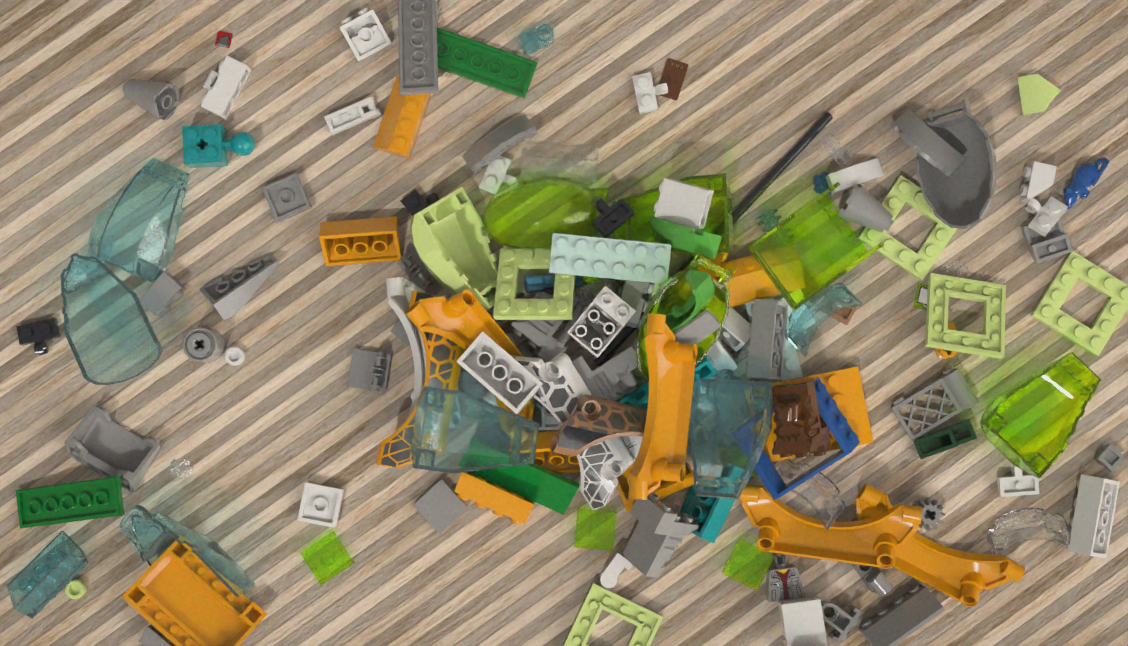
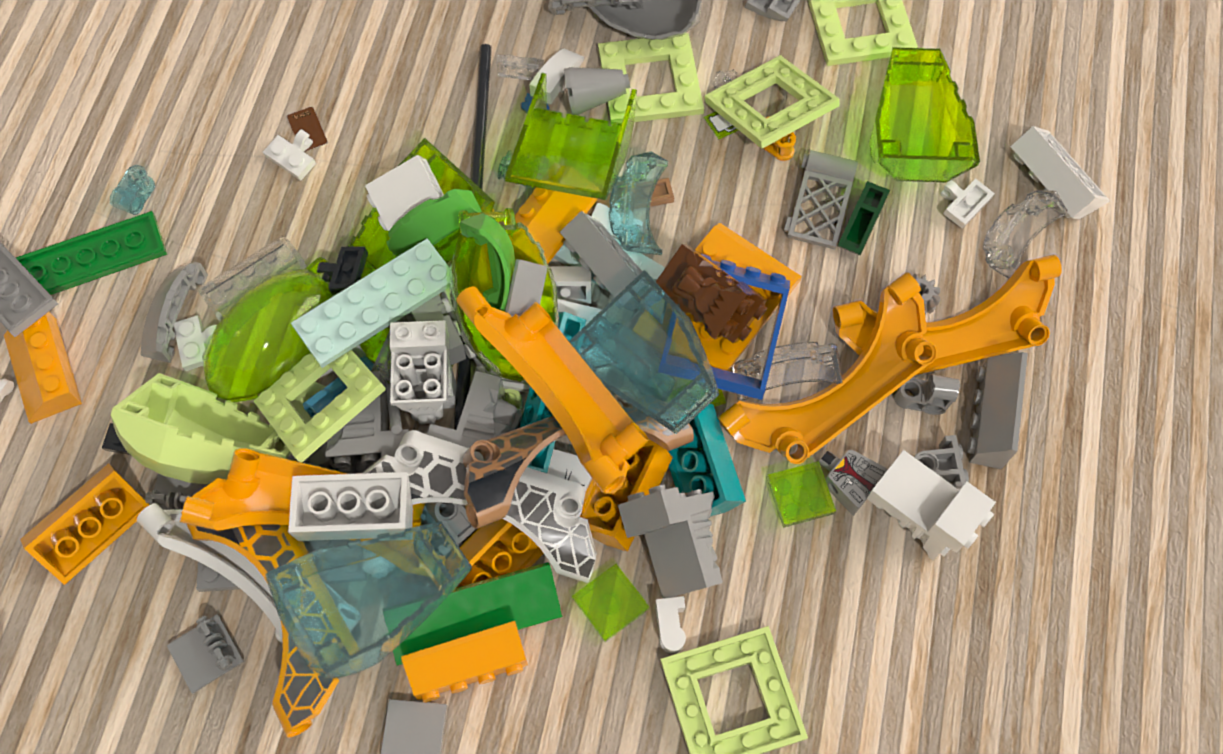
camera: 45 degrees left, 20 degrees down
(1110, 457) = (1018, 116): light grey plate -> none

